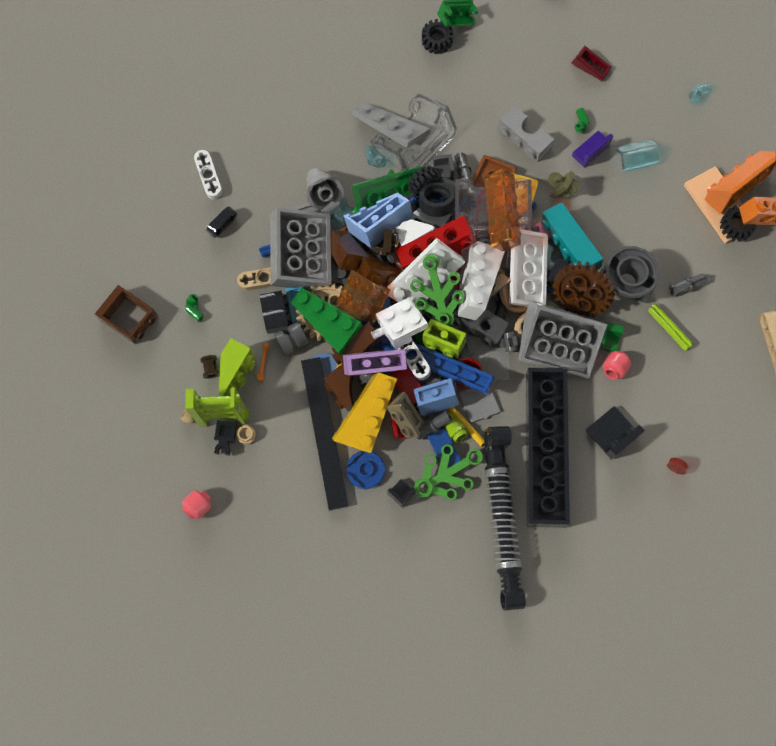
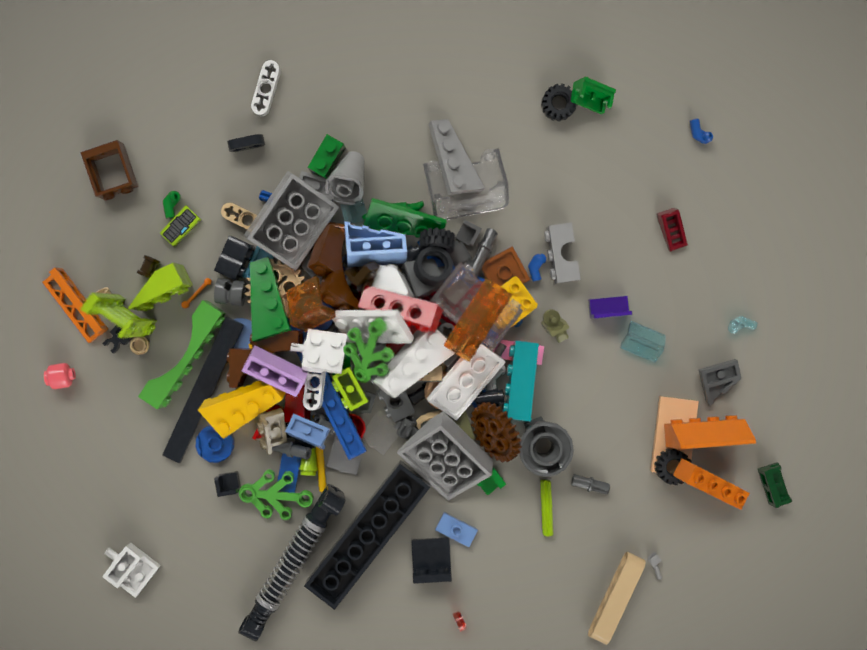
camera: 30 degrees right, 15 degrees up
(168, 432) = (77, 299): none -> orange fence
(213, 319) = (180, 226): none -> tile
(288, 453) = (204, 321): none -> bright green arch
(292, 187) = (326, 156): none -> green brick
(372, 626) = (130, 569): none -> white plate
(373, 159) = (416, 179): clear light blue arm -> none
(511, 157) = (535, 265): none -> blue arm
(583, 122) = (622, 277): green arm -> none
(614, 396) = (456, 529): none -> medium blue plate
(616, 365) = (476, 508): coral head -> none
(716, 140) = (719, 378): none -> dark grey wing

